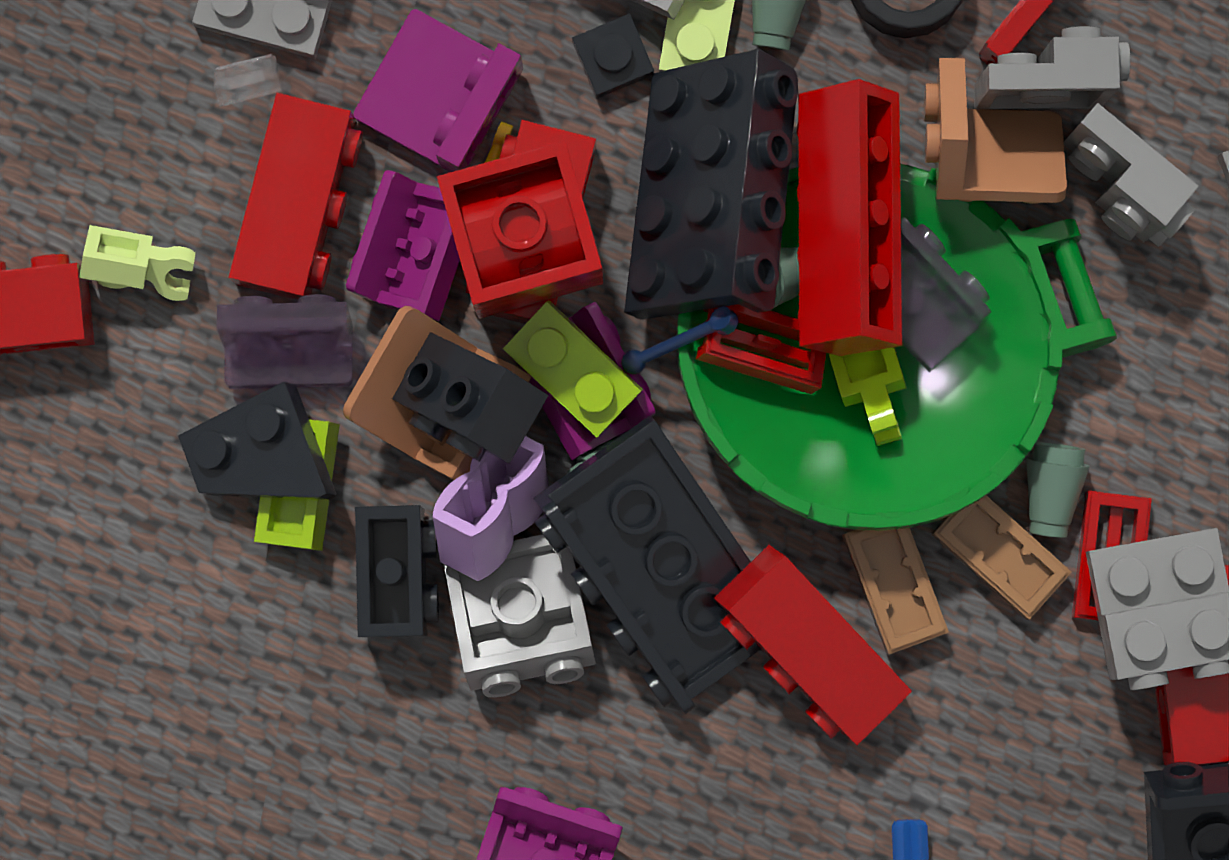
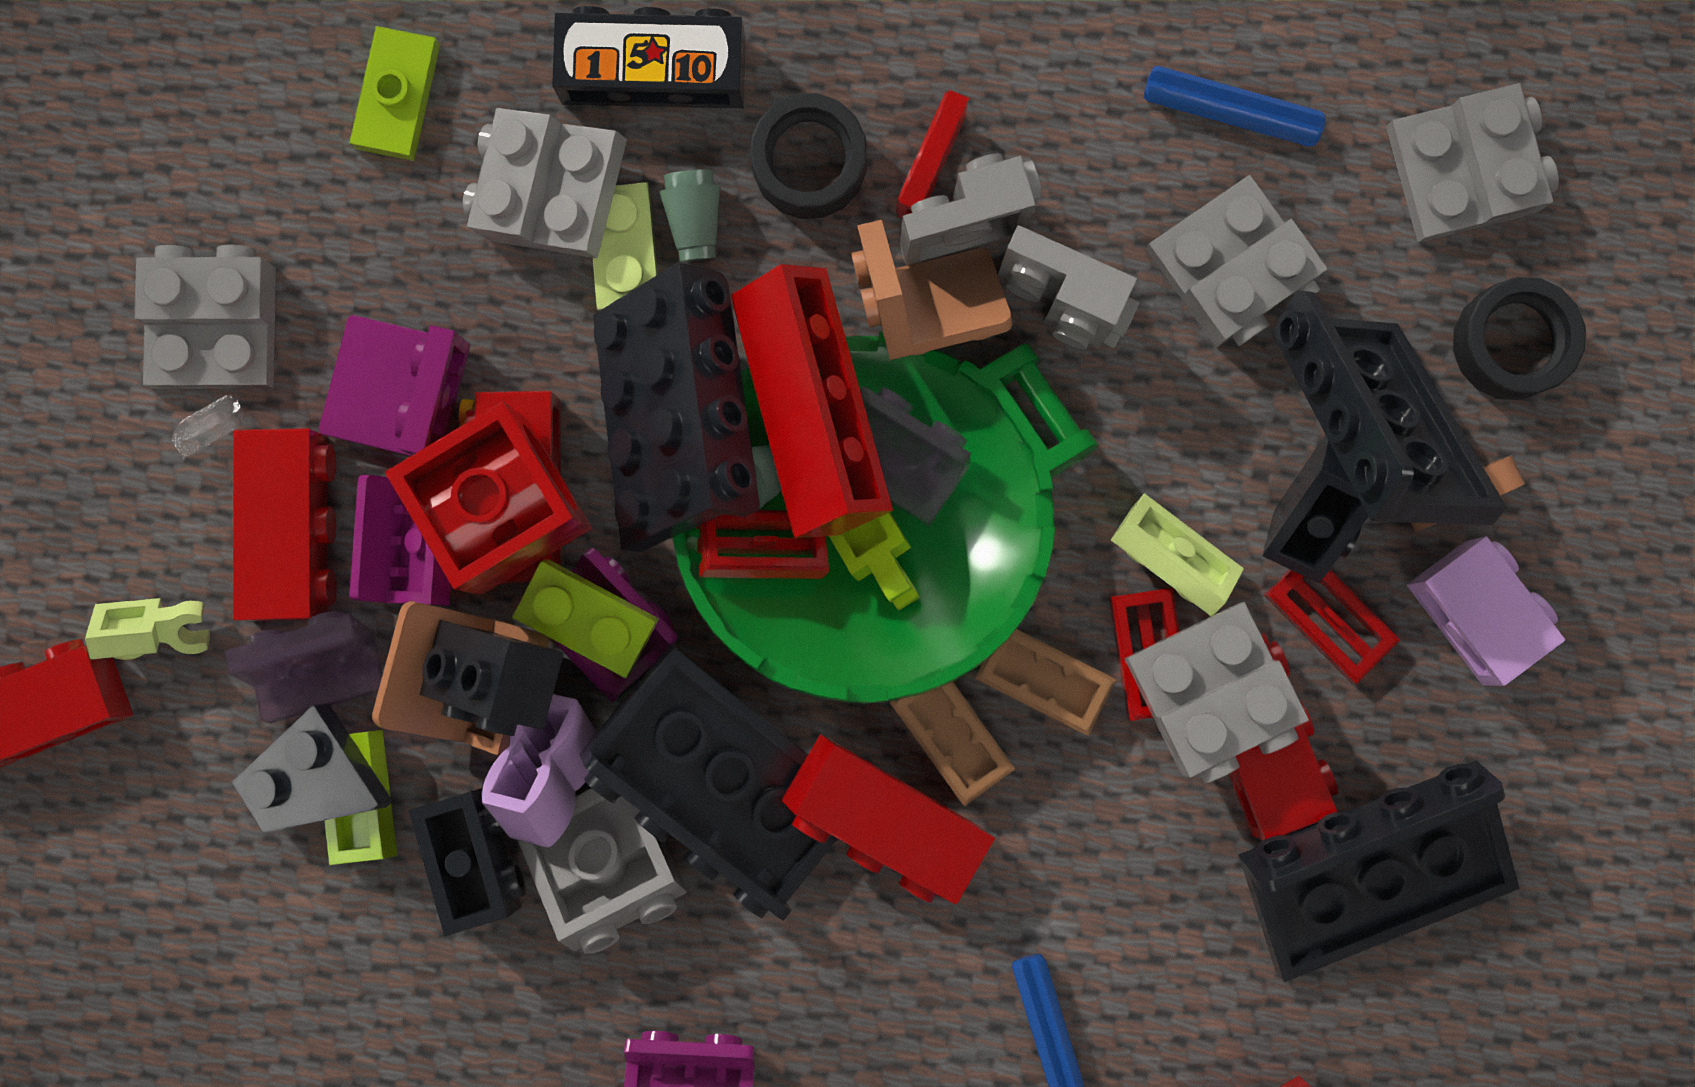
camera: 10 degrees left, 0 degrees up
(613, 56) = (551, 308): black plate -> none
(721, 320) = (712, 534): dark blue hinge -> none
(1054, 487) = (1078, 602): sand green cone -> none
(1165, 467) = (1177, 555): none -> yellowish green plate

